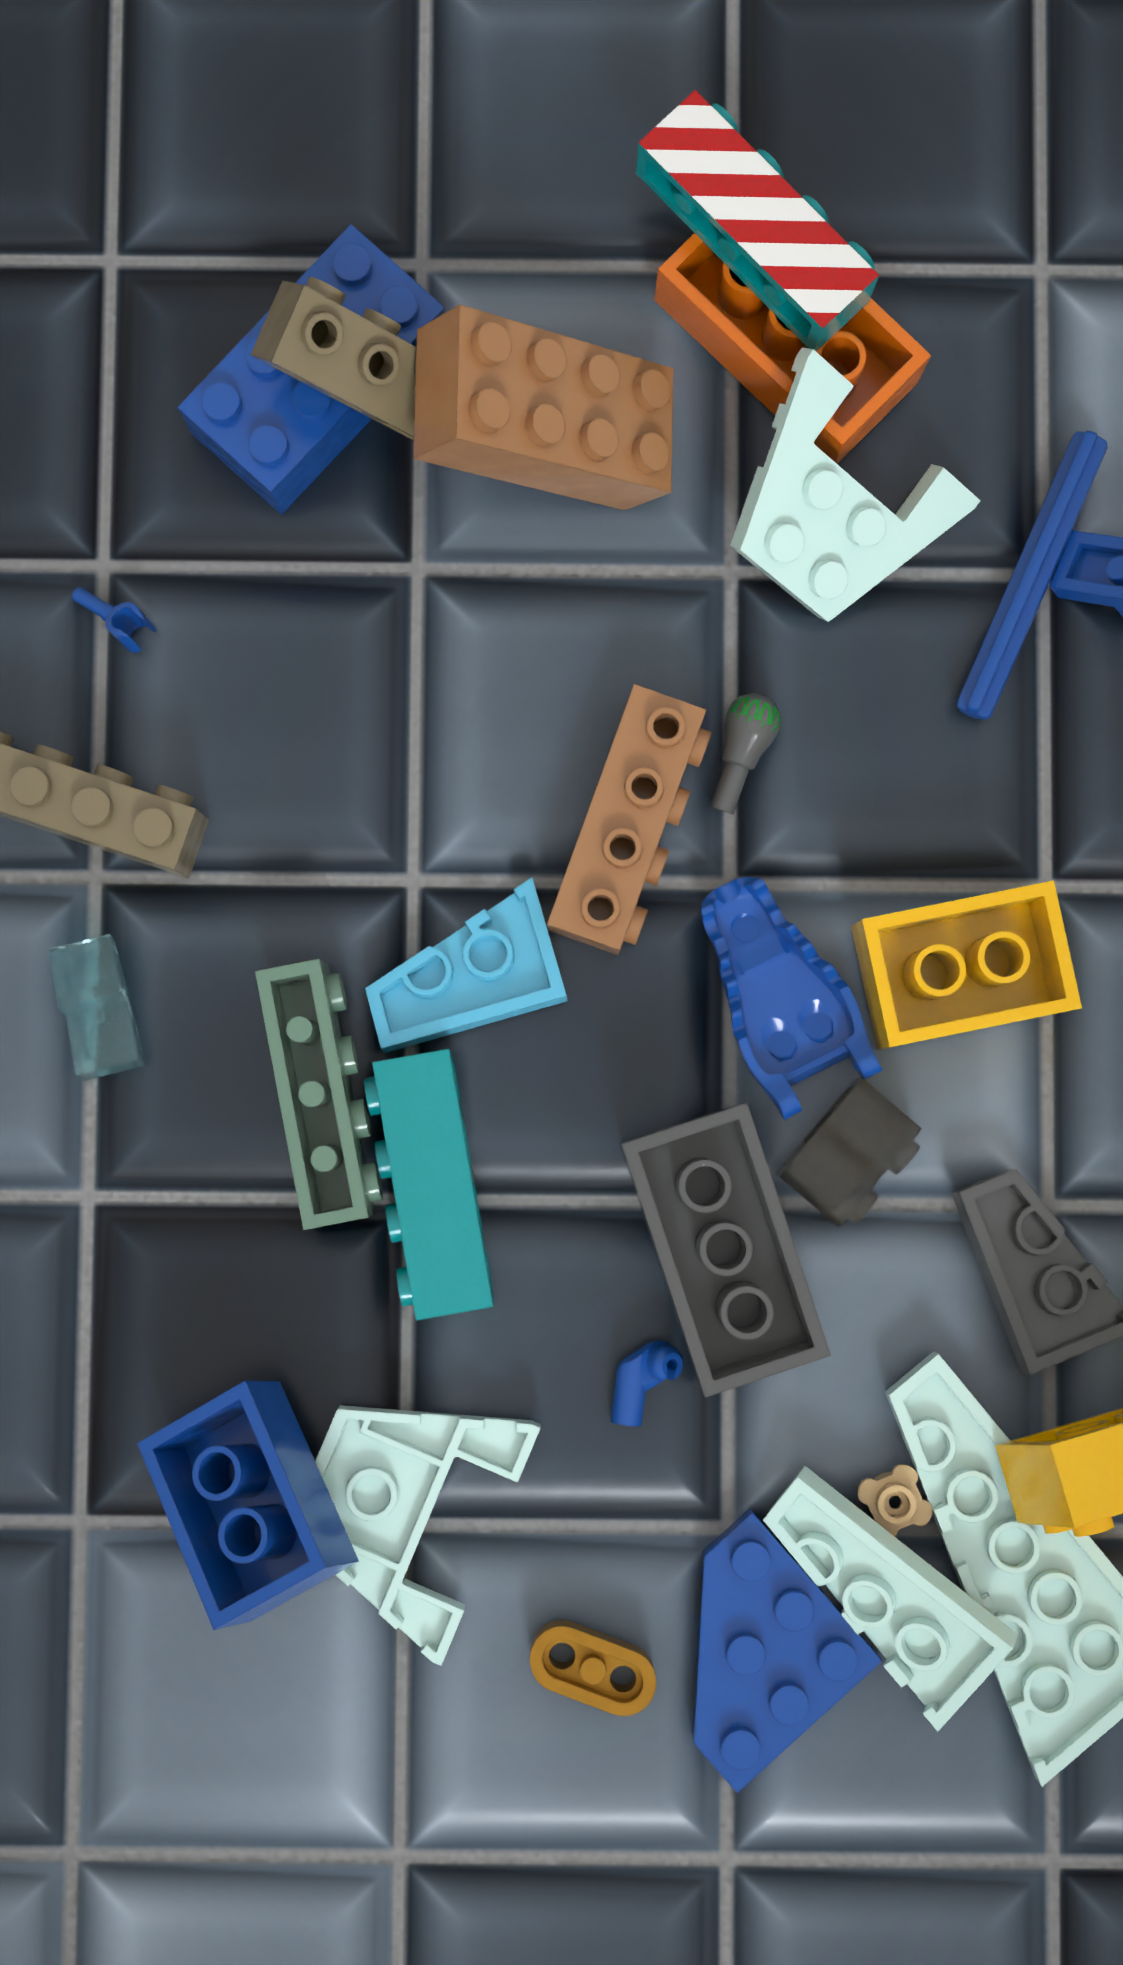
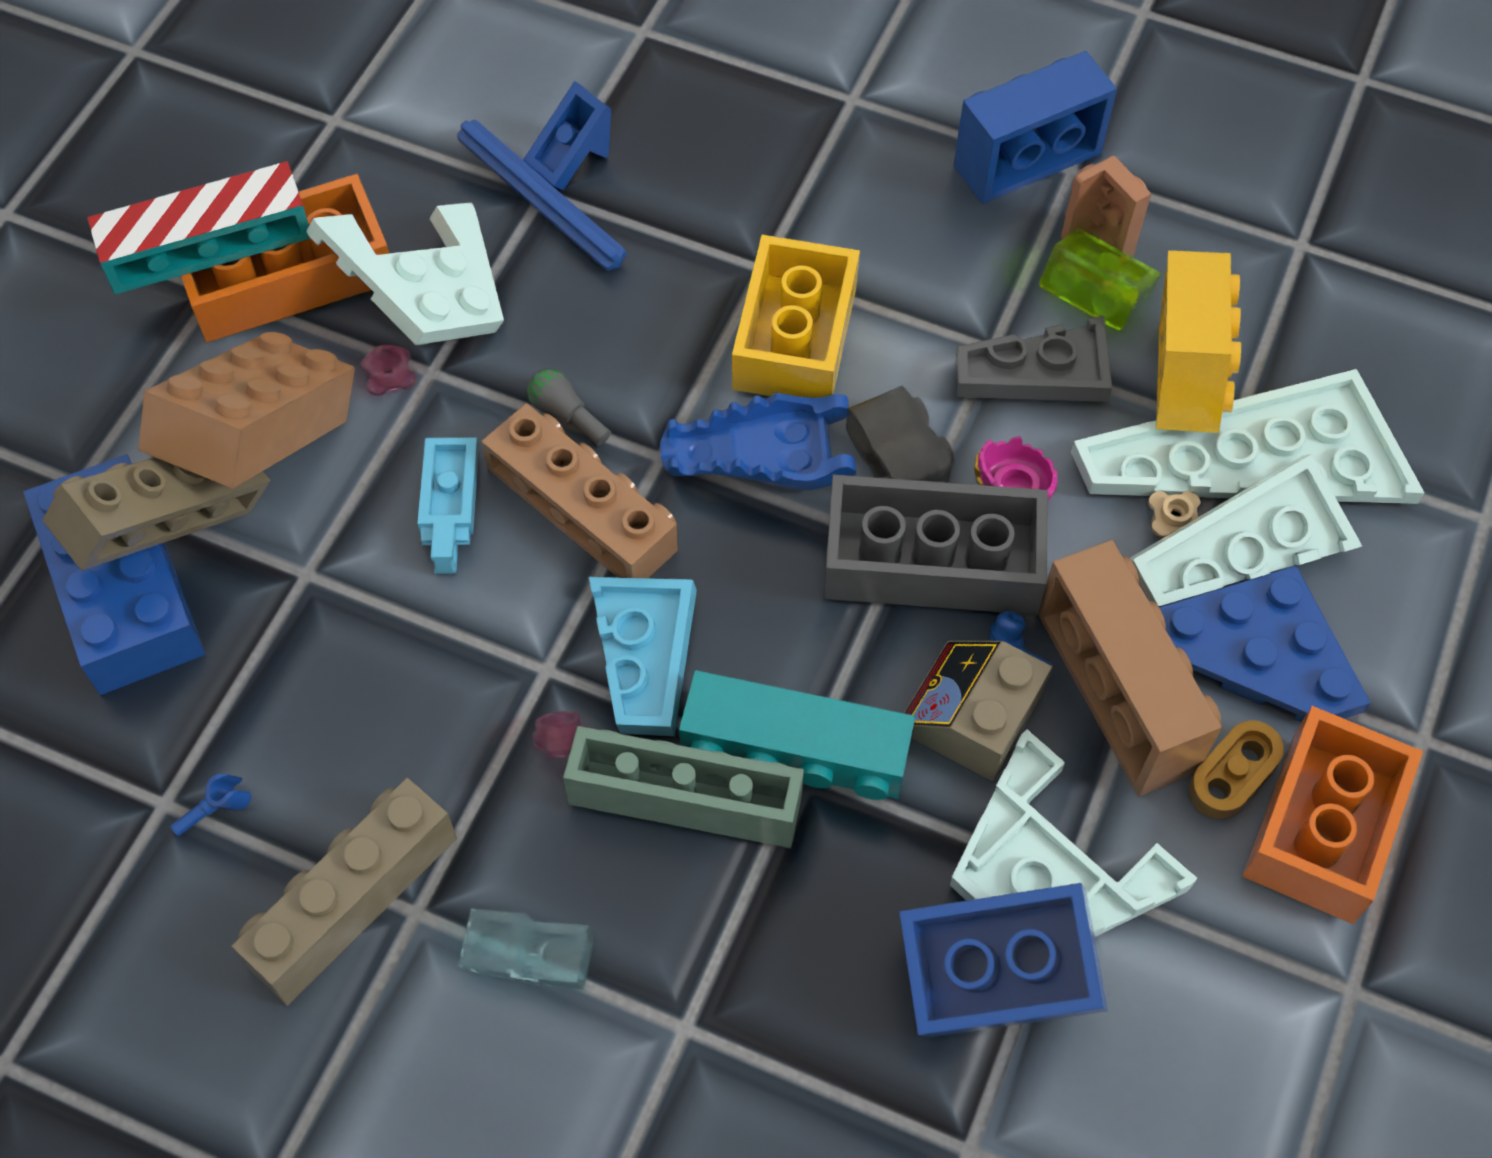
camera: 65 degrees left, 25 degrees down
(333, 932) = (556, 732): none -> clear pink plate
(553, 1358) = (977, 702): none -> dark tan slope
(566, 676) = (448, 498): none -> medium azure hinge
(569, 1793) = (1333, 815): none -> orange brick
(647, 1522) = (1128, 667): none -> medium nougat brick
(708, 507) = (384, 359): none -> clear pink plate
(862, 1302) = (1014, 466): none -> dark pink hair

